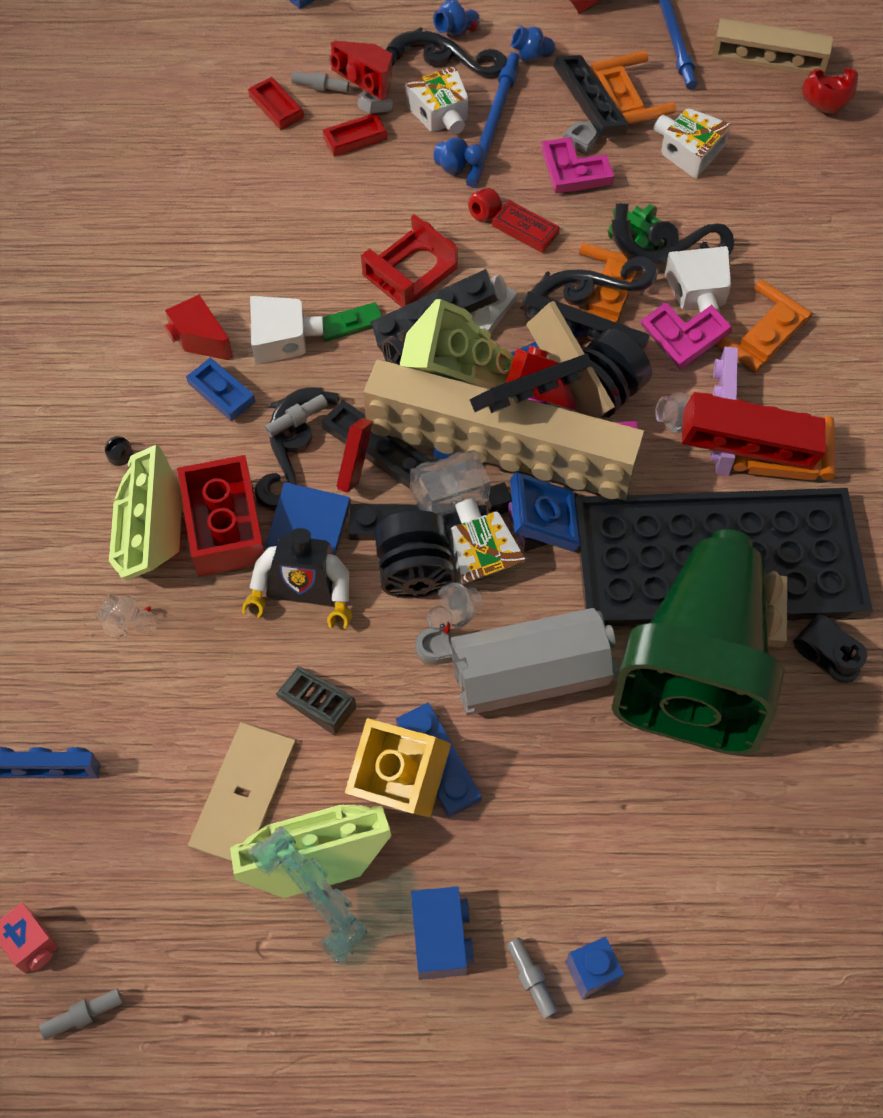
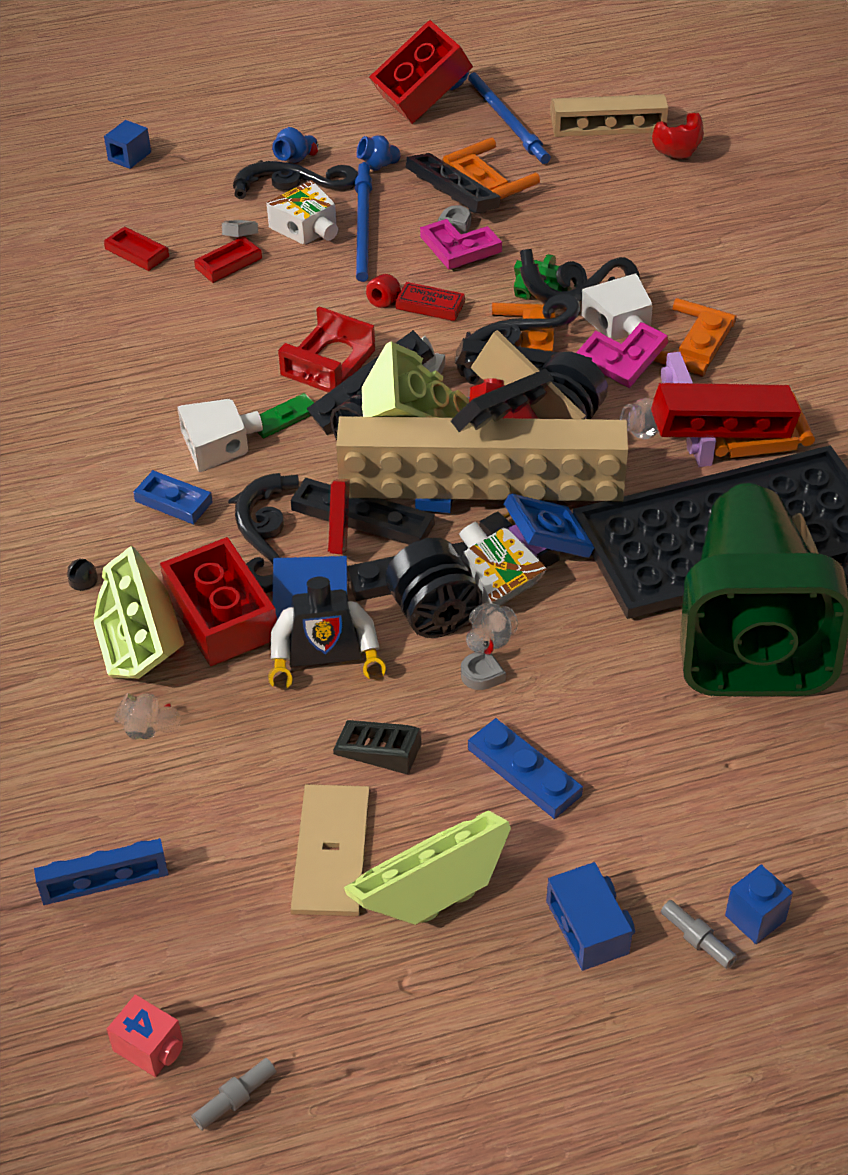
camera: 15 degrees left, 15 degrees down
(197, 329) = (130, 450): red slope -> none
(296, 415) = (262, 500): light grey bar -> none
(310, 878) = (455, 894): clear light blue plate -> none
(320, 81) = (176, 222): light grey bar -> none
(363, 65) = (216, 198): red slope -> none
(398, 767) = (492, 771): yellow brick -> none
(448, 482) = (446, 515): clear brick -> none
(456, 153) = (337, 254): blue animal -> none
(533, 660) = (589, 650): light grey brick -> none
(692, 140) = (564, 200): white torso -> none

